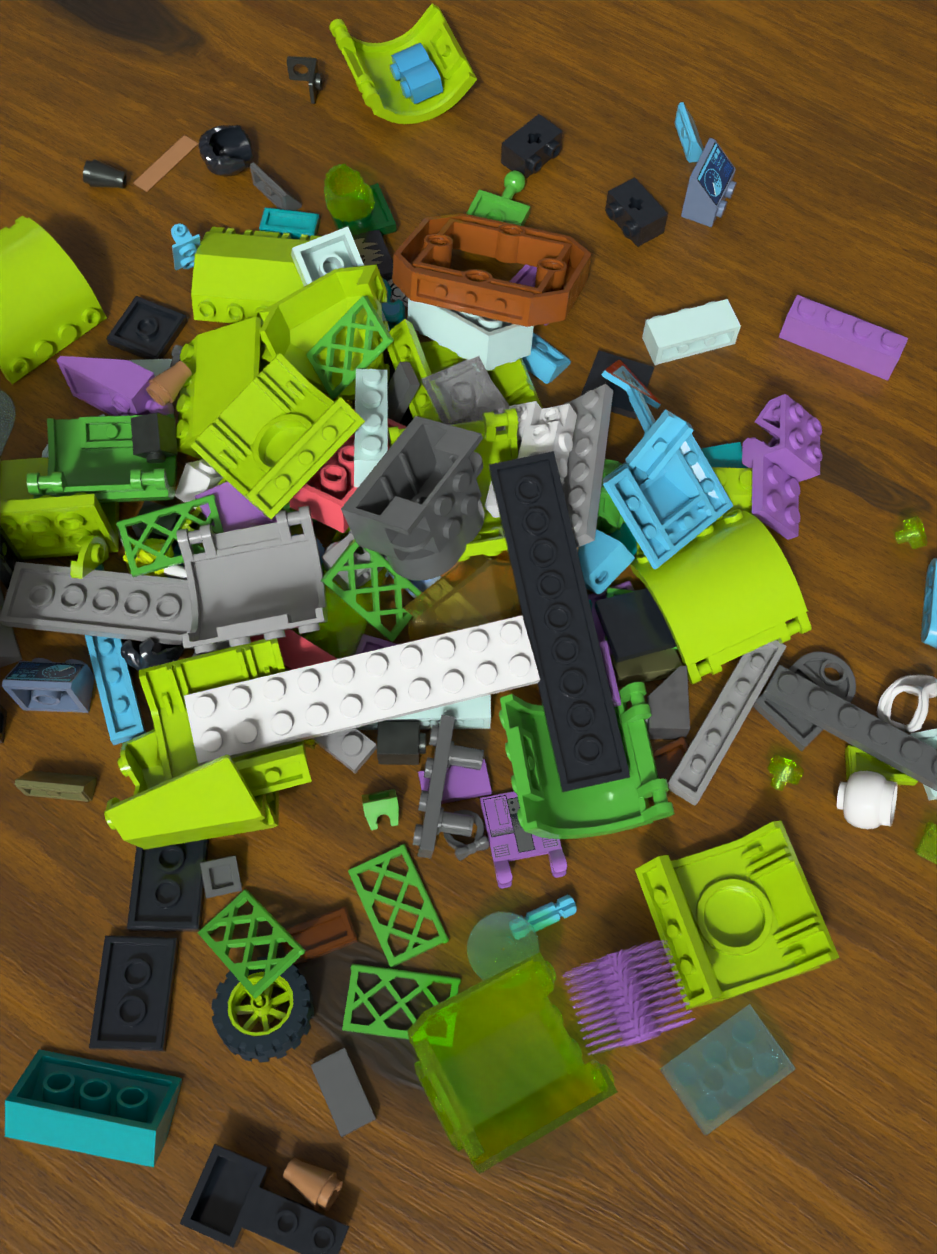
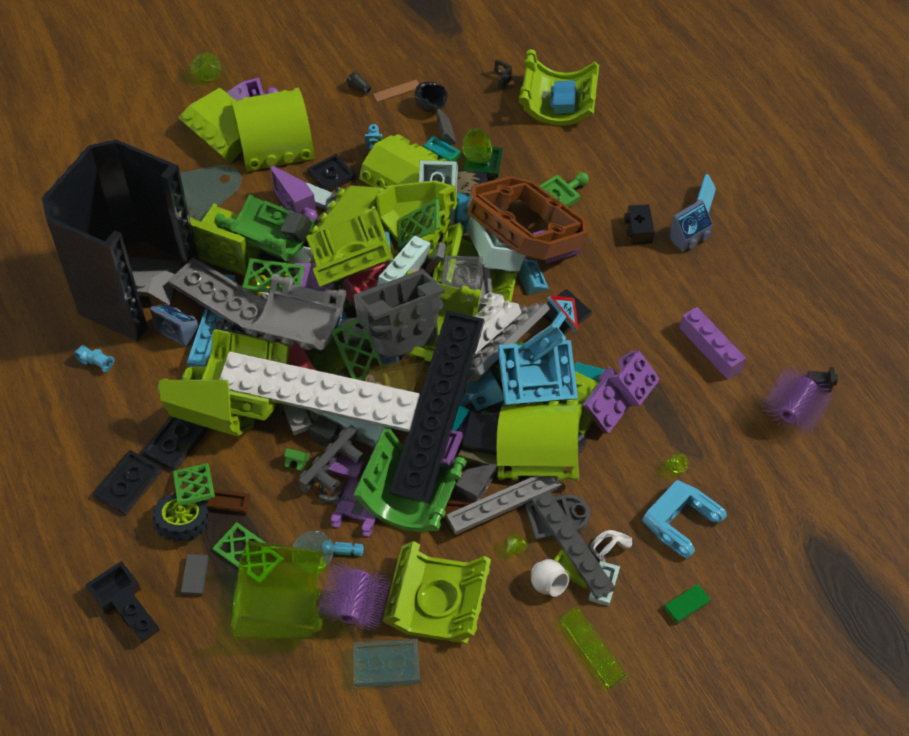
camera: 30 degrees right, 10 degrees down
(57, 785) = (147, 371): olive slope -> none
(91, 554) = (230, 268): lime plate -> none
(92, 1107) = (78, 519): teal slope -> none
(168, 384) = (318, 203): medium nougat cone -> none
(220, 876) = (199, 449): dark grey plate -> none
(314, 1183) = (156, 605): medium nougat cone -> none
(383, 931) = (273, 530): bright green window -> none
(532, 146) = (604, 164): black brick -> none
(690, 331) = (625, 301): light aqua brick -> none

